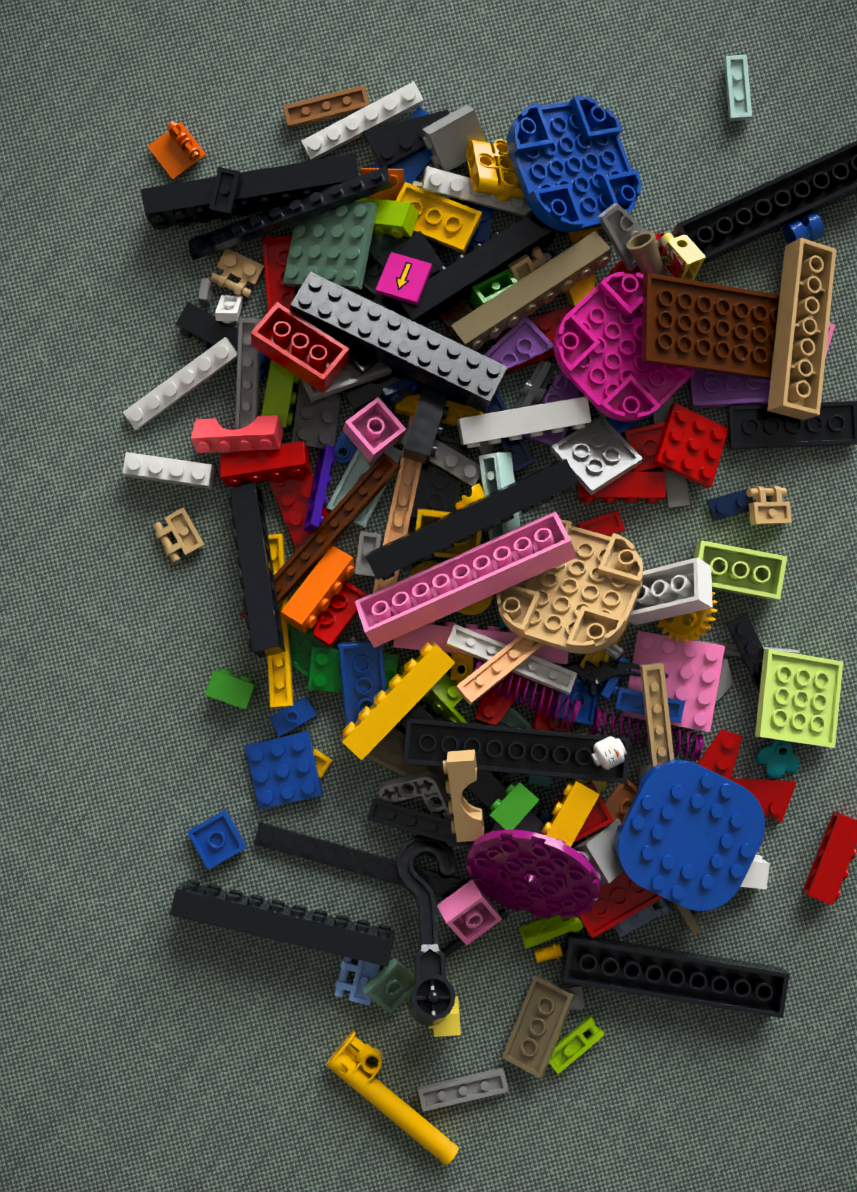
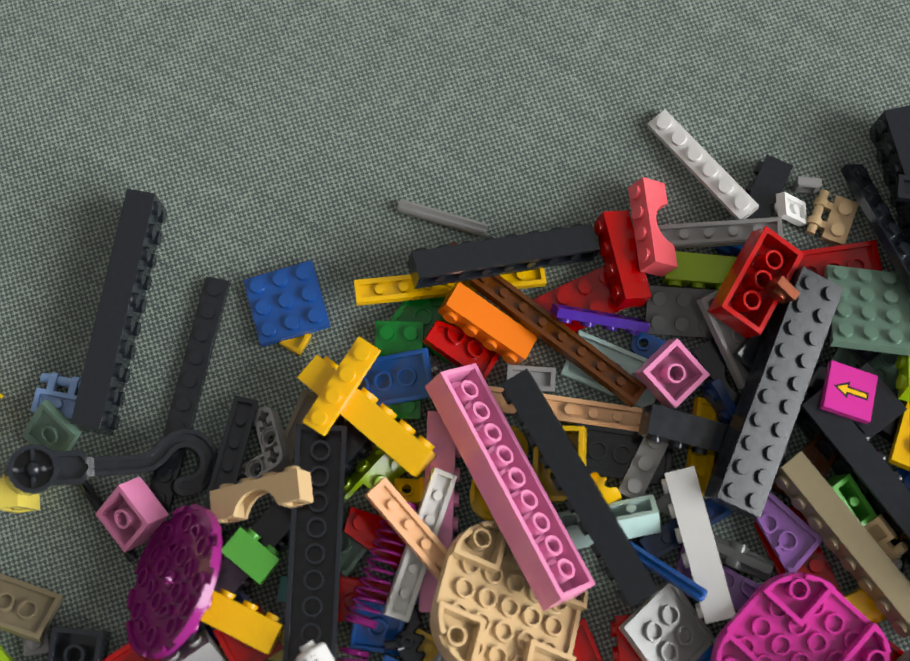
camera: 90 degrees right, 10 degrees down
(169, 470) = (606, 160): white brick -> none
(184, 532) = (540, 181): tan plate -> none
(212, 624) = (442, 218): none -> light grey axle
(217, 839) = (210, 237): blue plate -> none
(231, 688) = (372, 241): bright green brick -> none
(293, 716) = (346, 310): blue plate -> none
(312, 325) = (781, 290): none -> copper plate
(373, 720) = (341, 386): none -> yellow plate
(546, 929) = (114, 608): lime plate -> none
(547, 449) = (671, 575): none -> blue axle
(548, 953) = (87, 611): yellow pin -> none

